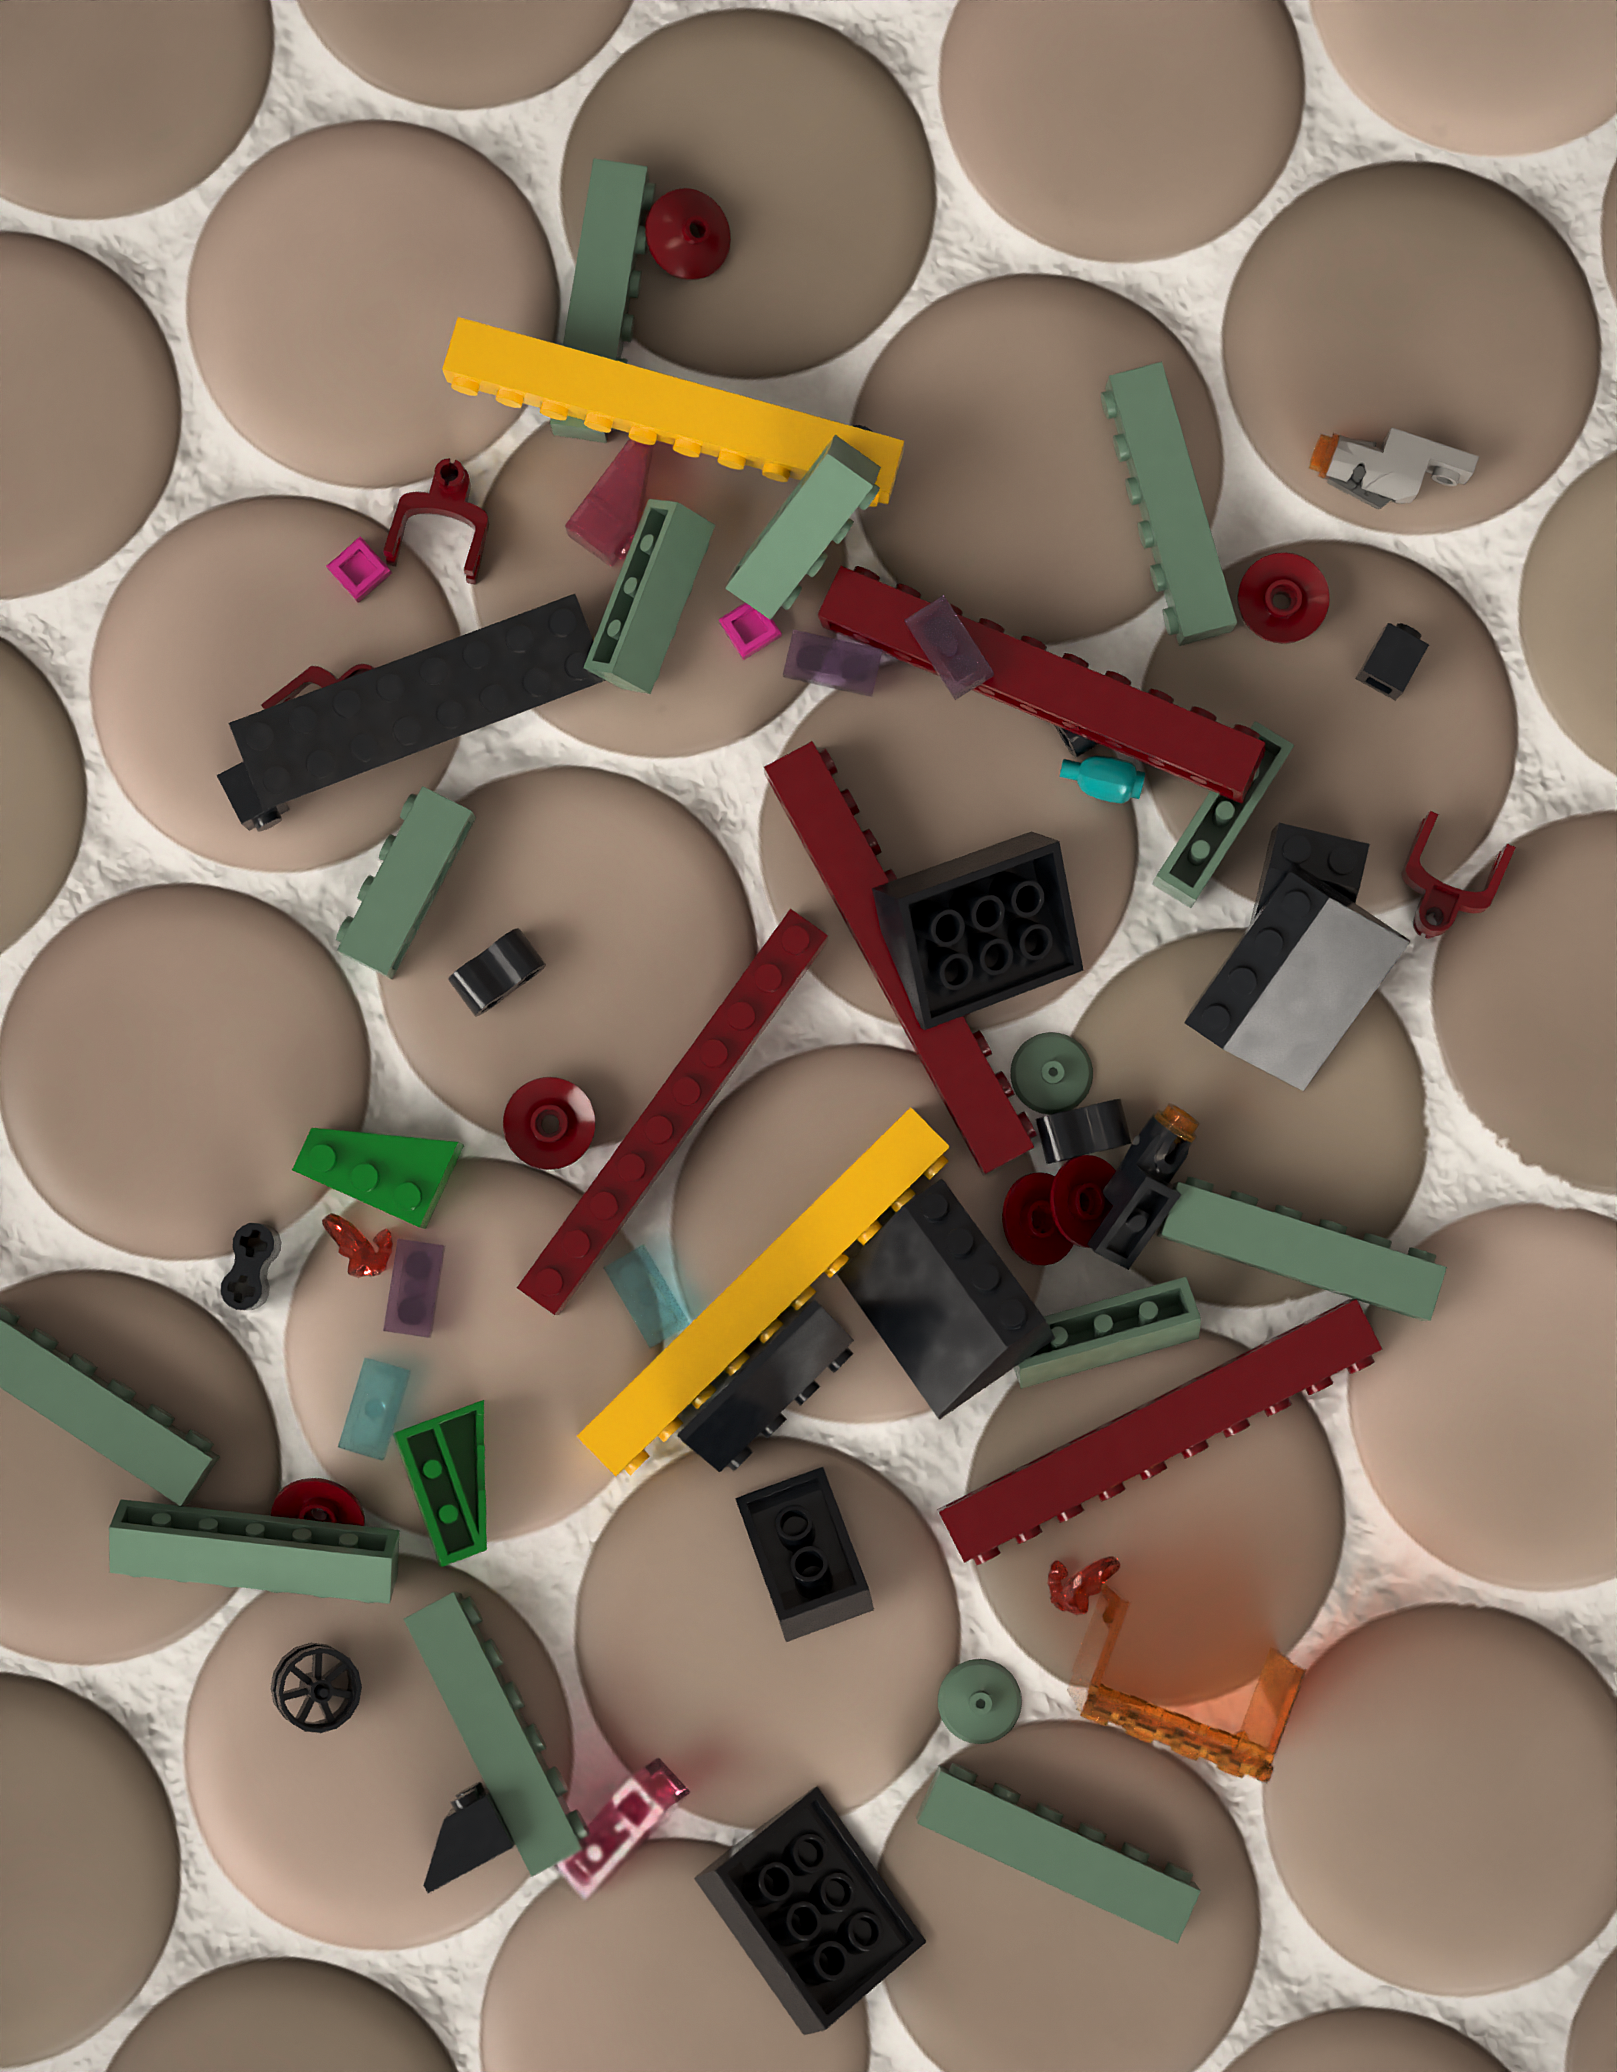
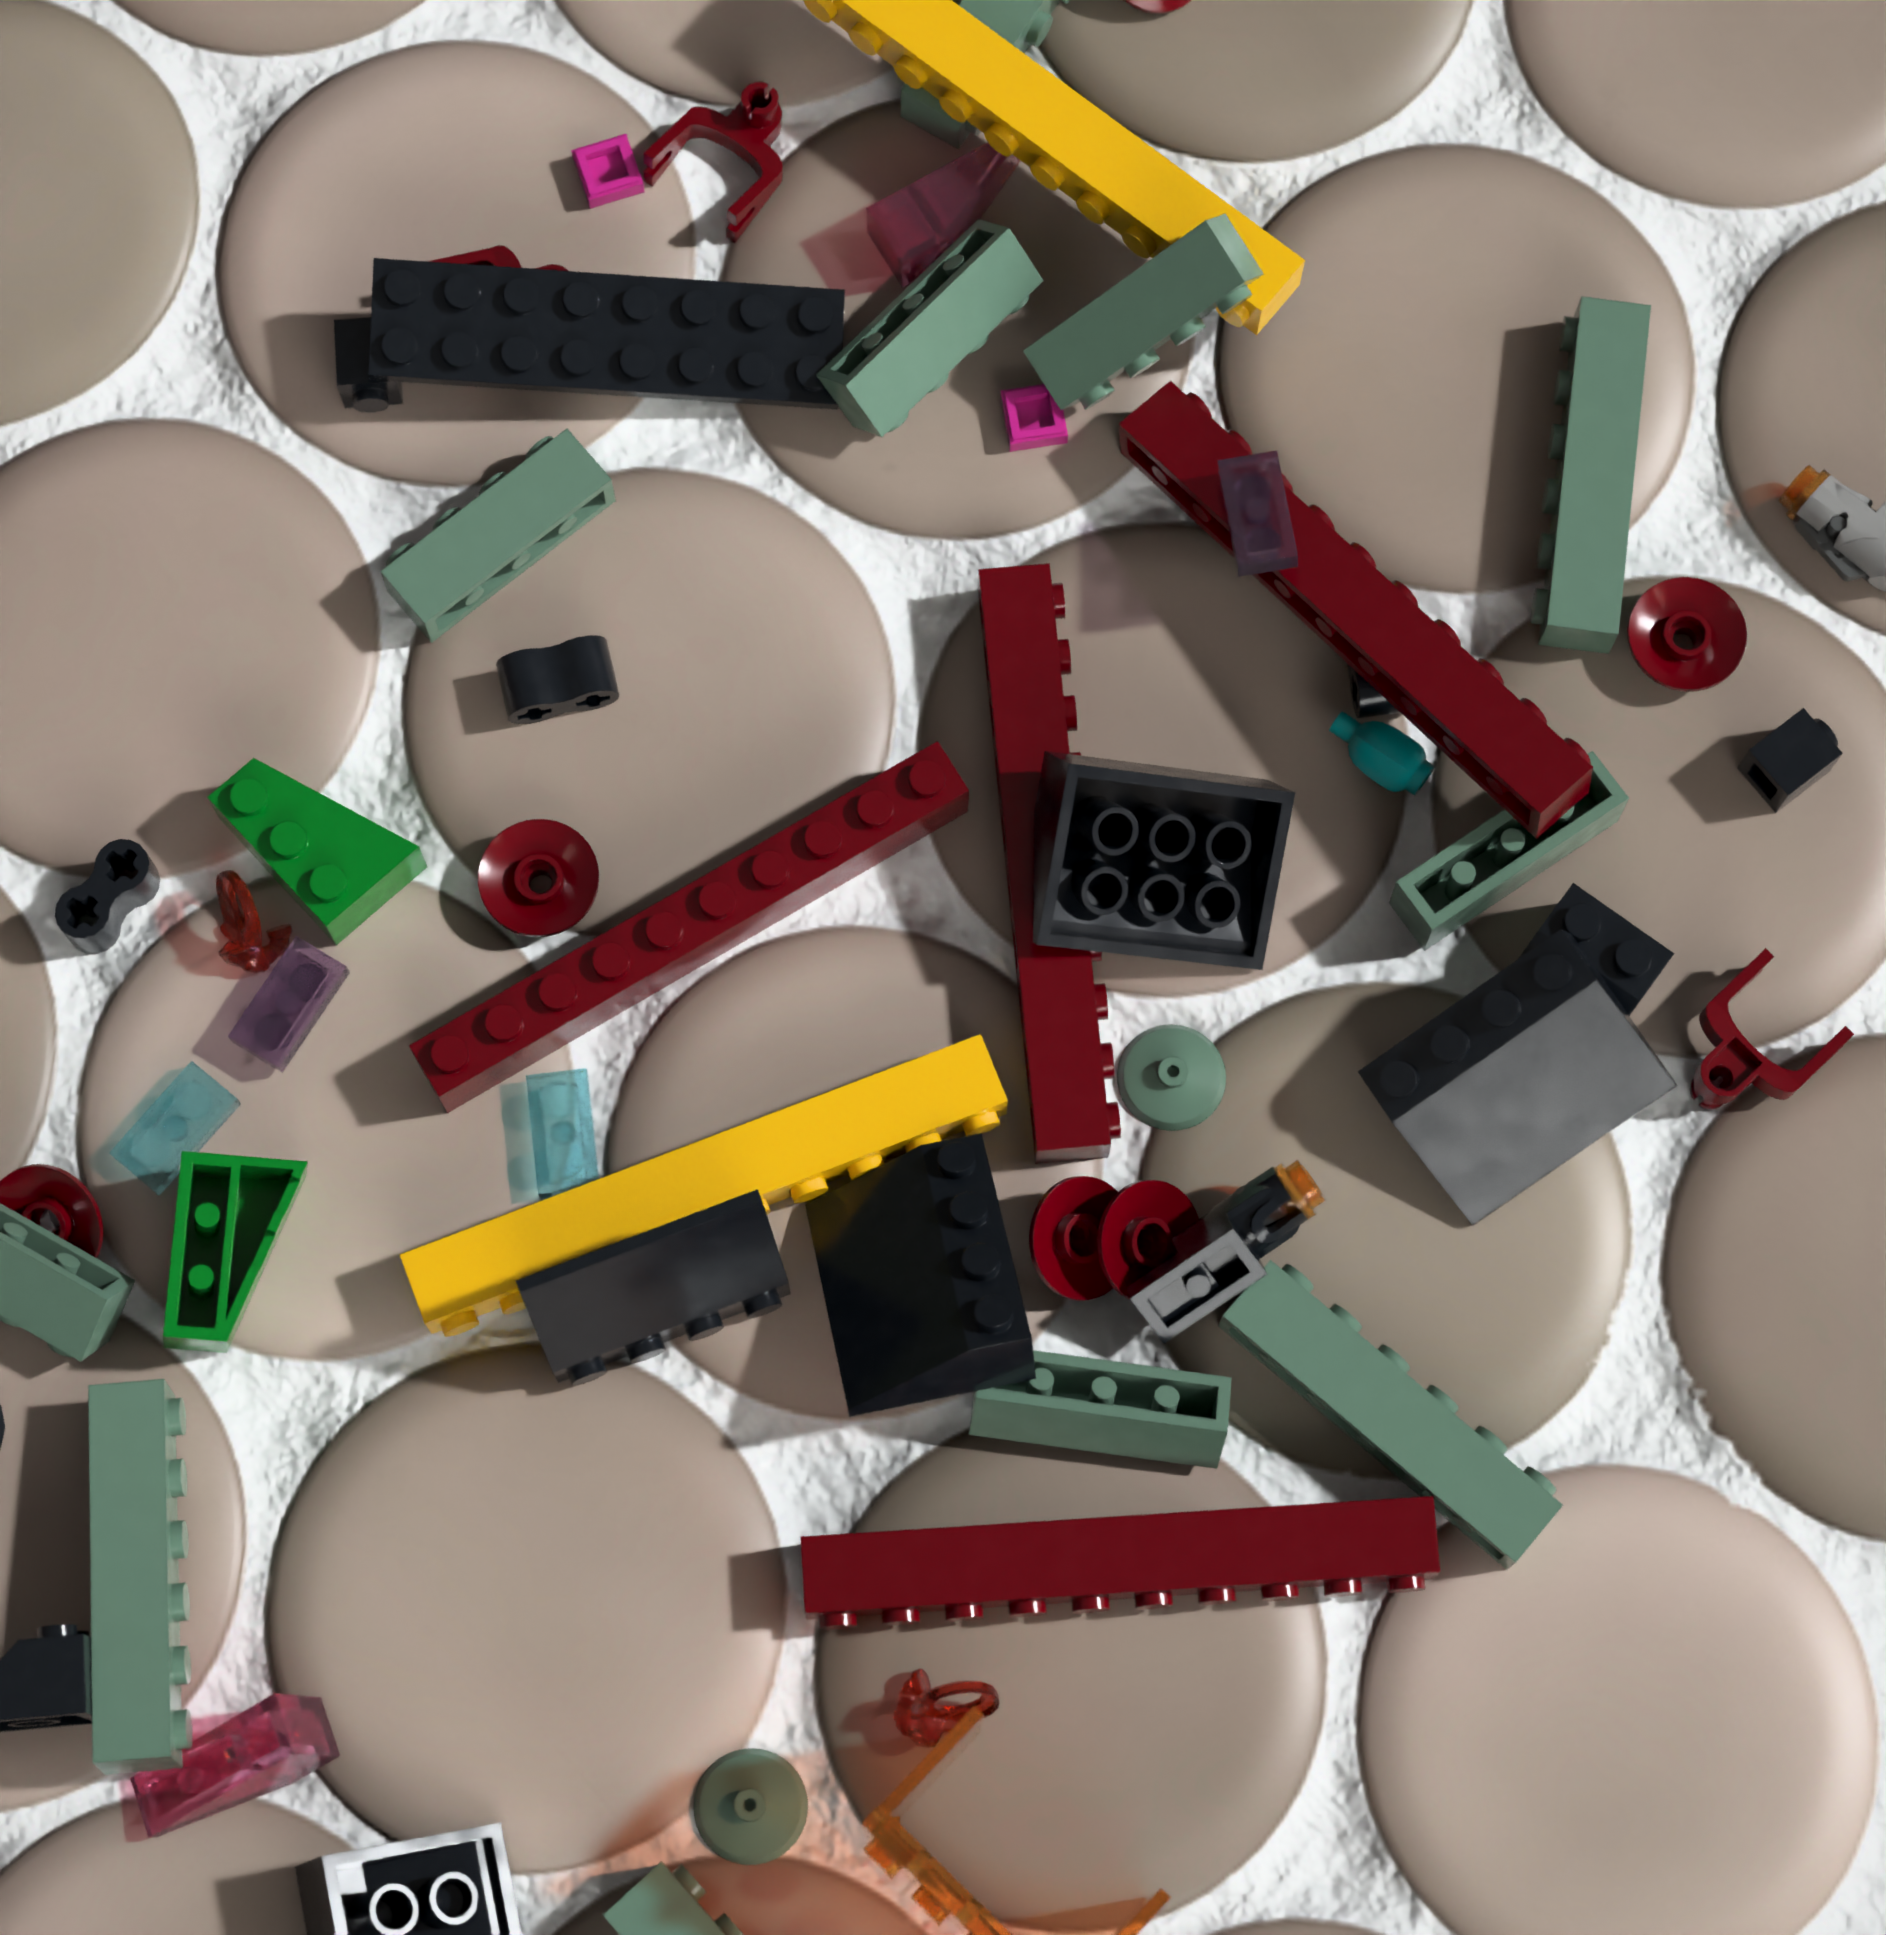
camera: 20 degrees right, 10 degrees down
(805, 1554) = (613, 1525): black slope -> none
(832, 663) = (1113, 492): clear purple plate -> none
(1083, 1131) = (1189, 1156): black axle -> none

